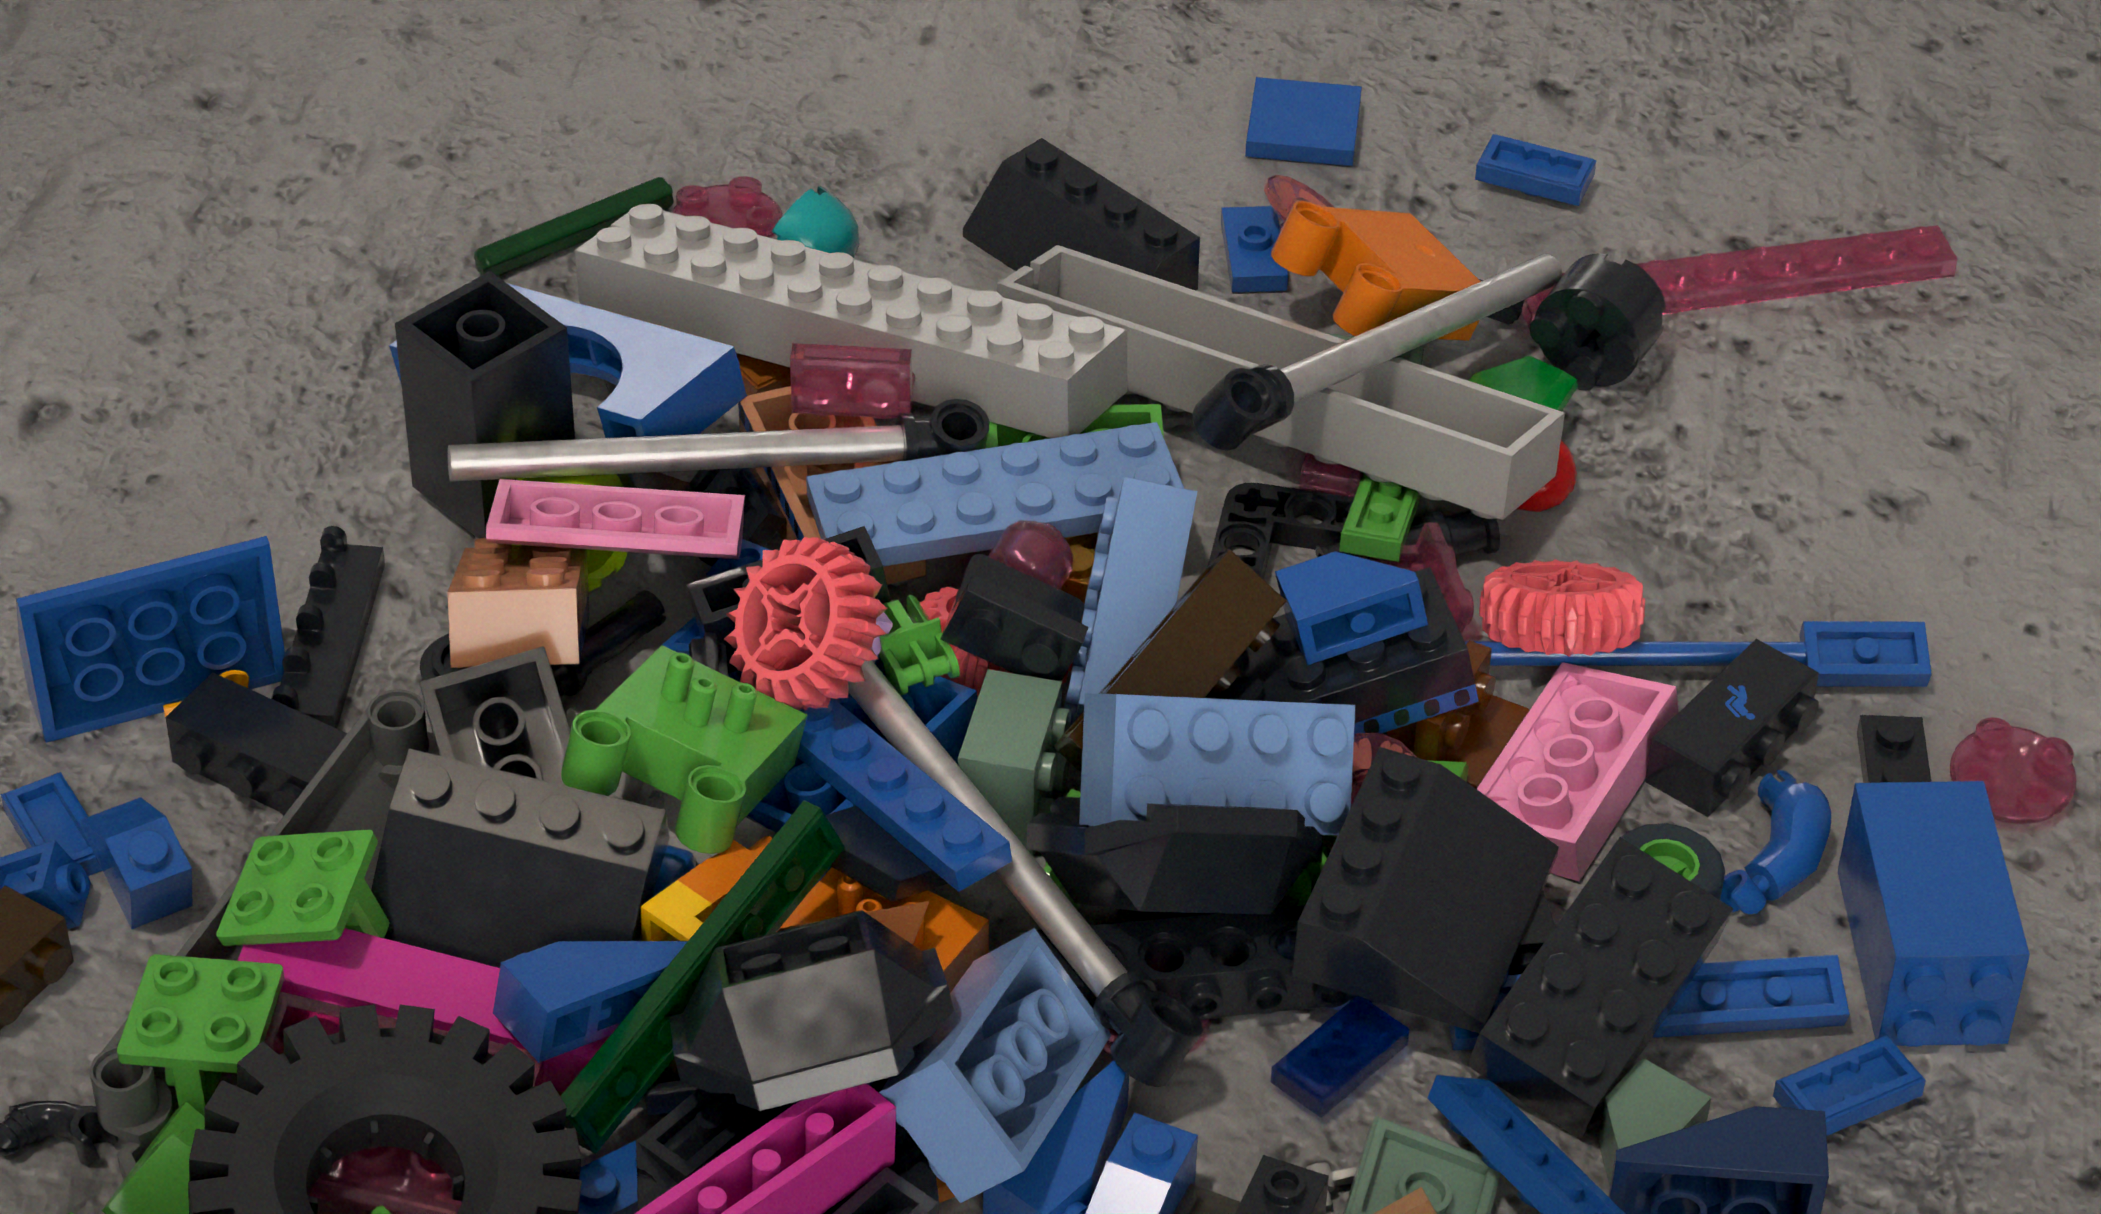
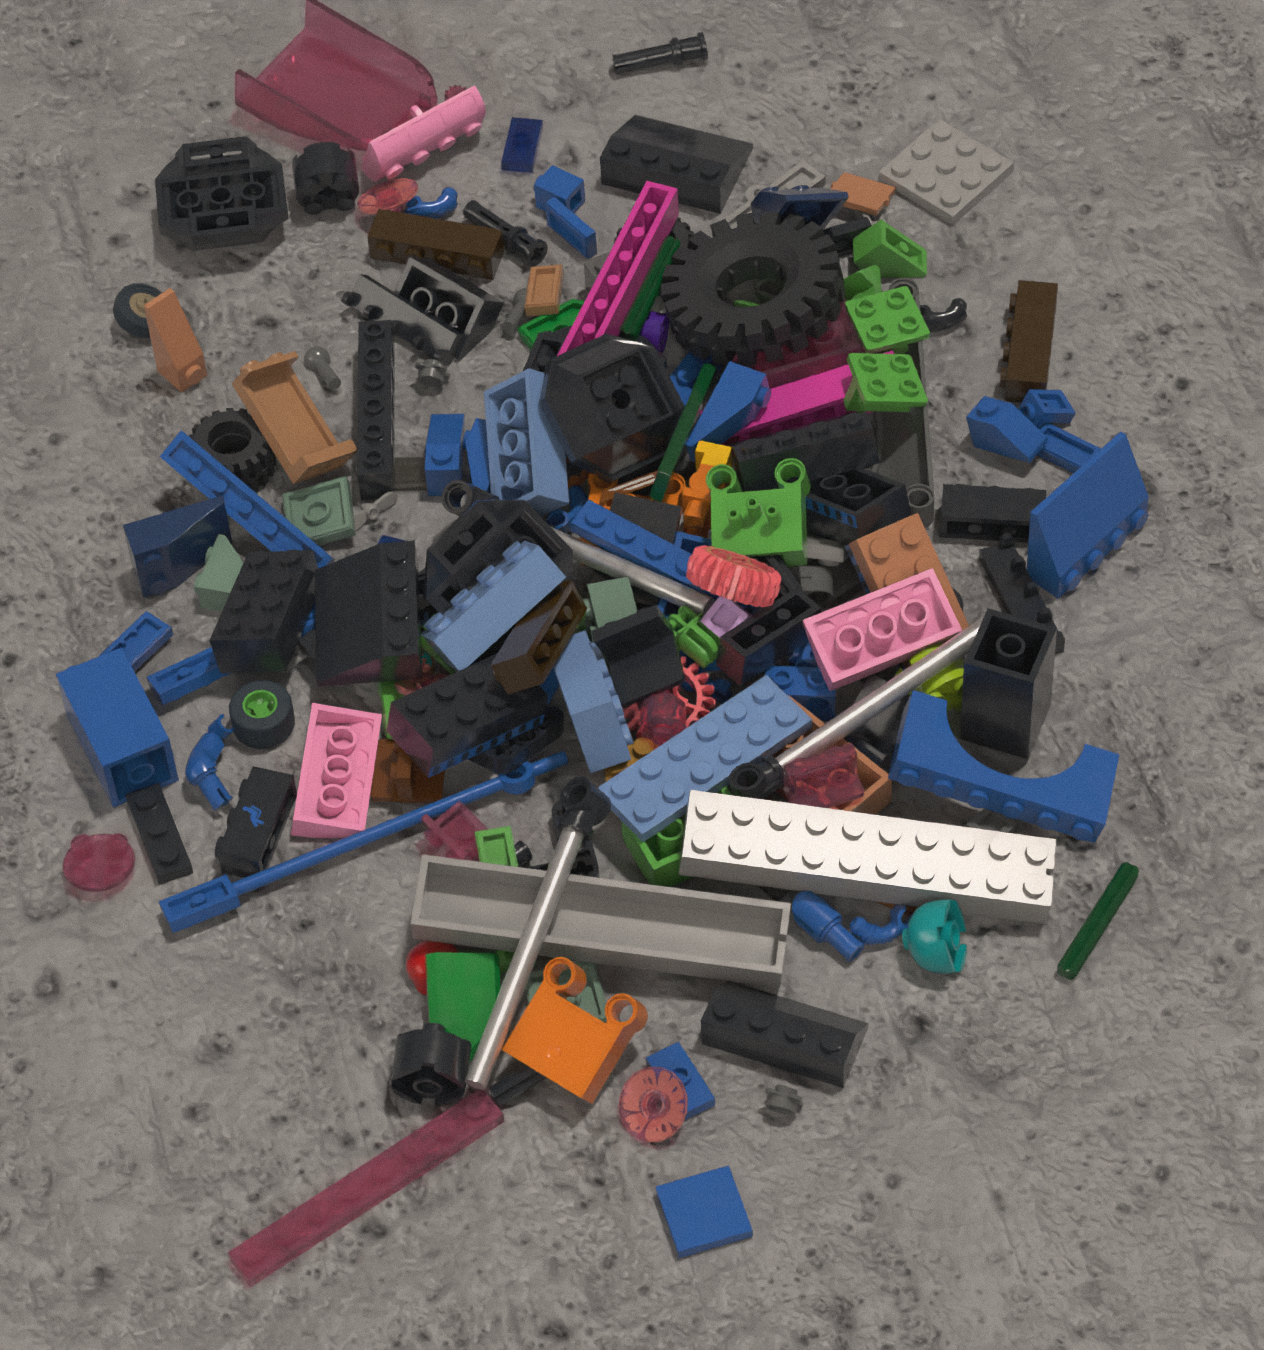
camera: 160 degrees right, 10 degrees up
(731, 205) = (1012, 964): clear pink dish -> none
(1135, 172) = (783, 1100): none -> dark grey plate
(1348, 603) = (462, 689): blue slope -> none
(1535, 169) = (530, 1221): blue plate -> none
(1562, 607) = (388, 841): coral gear -> none

